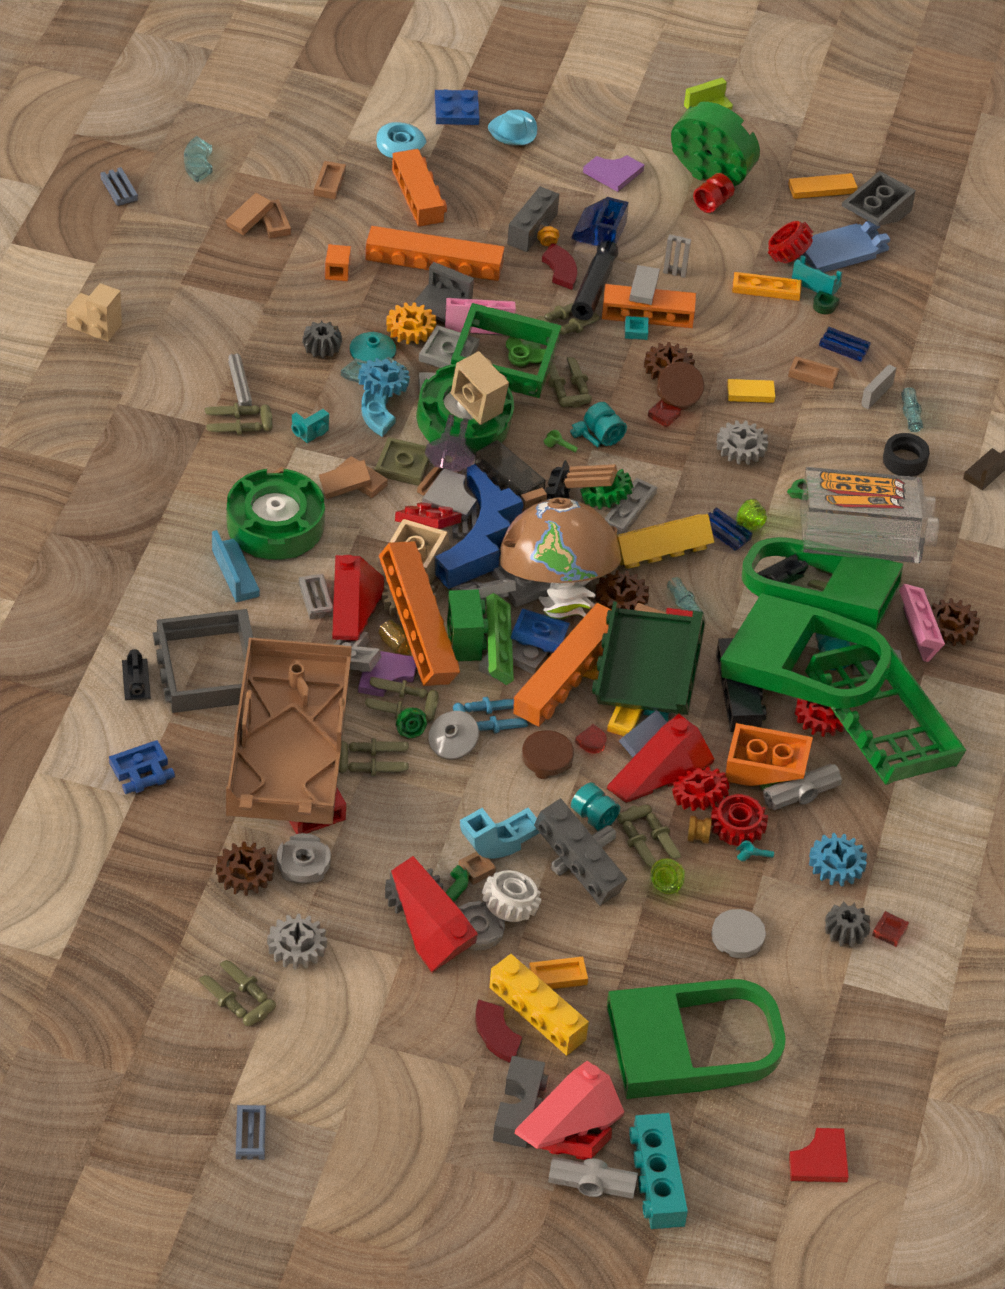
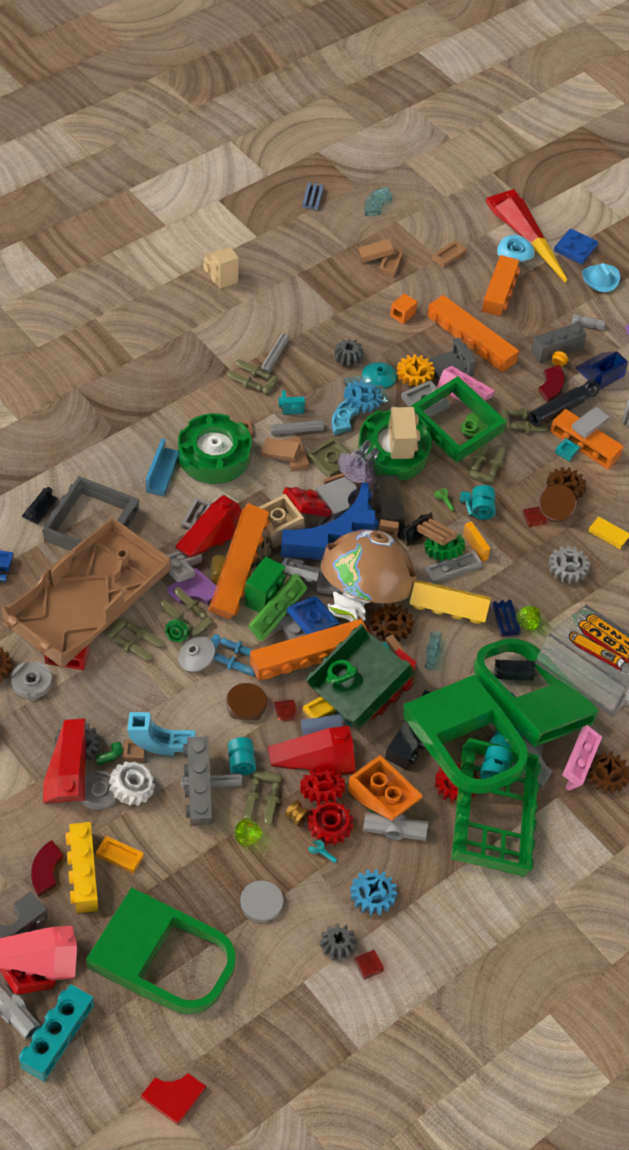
camera: 35 degrees right, 5 degrees up
(337, 448) = (297, 427): none -> light grey axle
(362, 101) = (516, 214): none -> red plate
(543, 181) = (588, 322): none -> light grey axle
(625, 676) = (351, 671): none -> green piece
(634, 466) = (476, 541): none -> light orange tile
(854, 665) = (496, 761): none -> teal wheel

